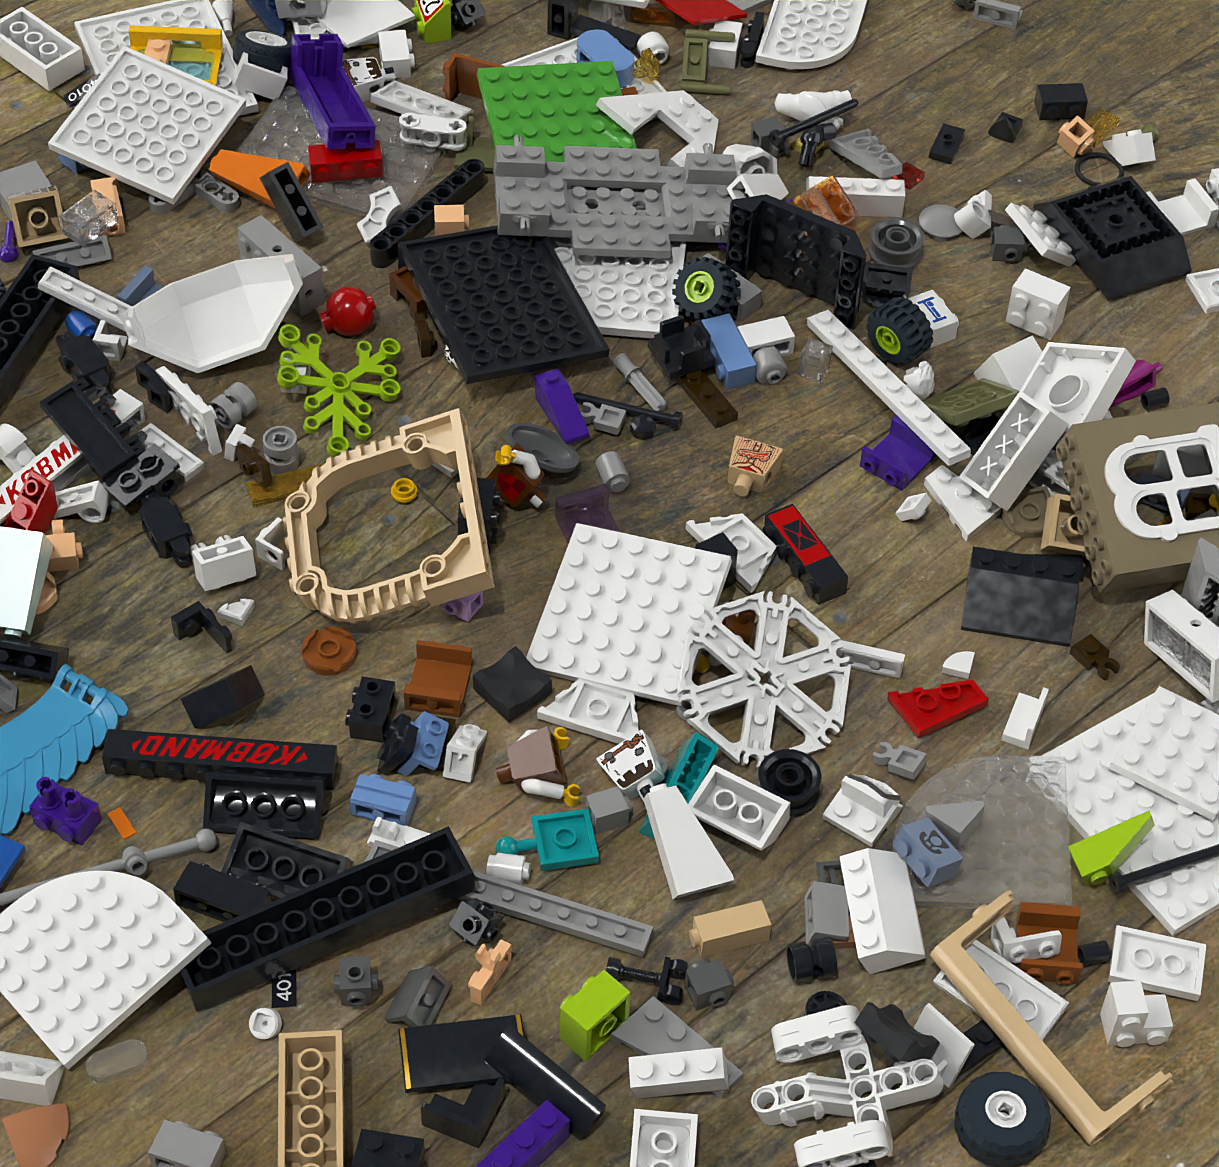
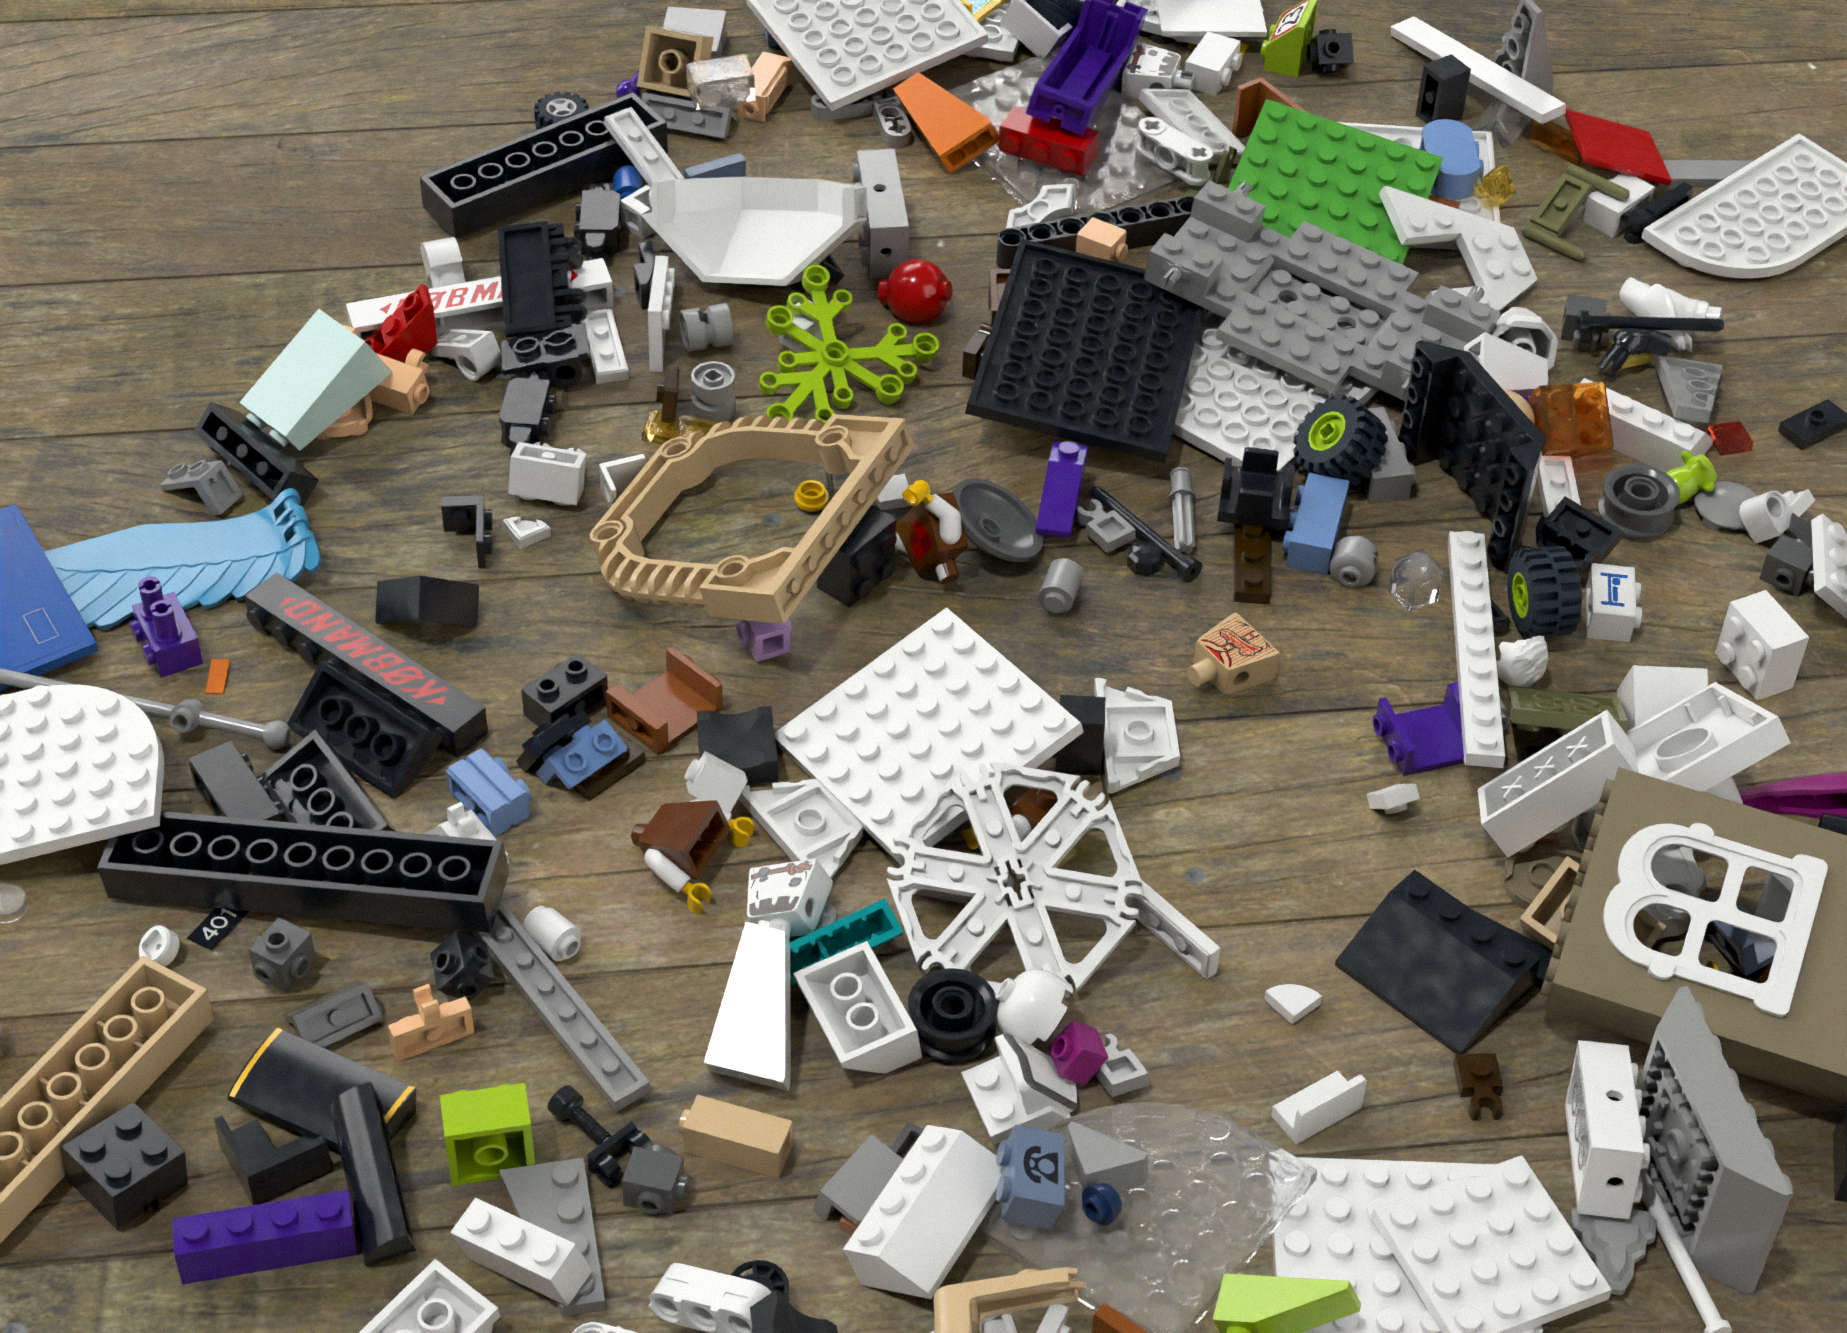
camera: 35 degrees right, 5 degrees down
(236, 438) = (681, 357): white tile -> none
(291, 202) = (946, 154): black brick -> none
(329, 651) = (582, 617): dark orange tile -> none
(462, 752) = (612, 783): white bracket -> none
(527, 714) = (715, 780): none -> white brick
(559, 838) = (637, 936): teal plate -> none
(586, 508) = (990, 610): clear purple bracket -> none
(608, 809) = (716, 931): light grey brick -> none
(625, 37) = (1492, 147): black tile -> none
(656, 43) = (1526, 173): white head -> none
(768, 333) = (1383, 526): white brick -> none
(805, 554) = (1207, 782): black brick -> none
(811, 960) = (796, 1223): black wheel -> none
(837, 750) = (1031, 1004): none -> white cylinder
(885, 762) = (1078, 1052): none -> magenta plate
(915, 209) = (1695, 474): none -> lime animal
(937, 707) = (1214, 1032): red wing -> none
(962, 502) = (1459, 832): white wing -> none
(975, 845) = (1101, 1203): none -> dark blue plate

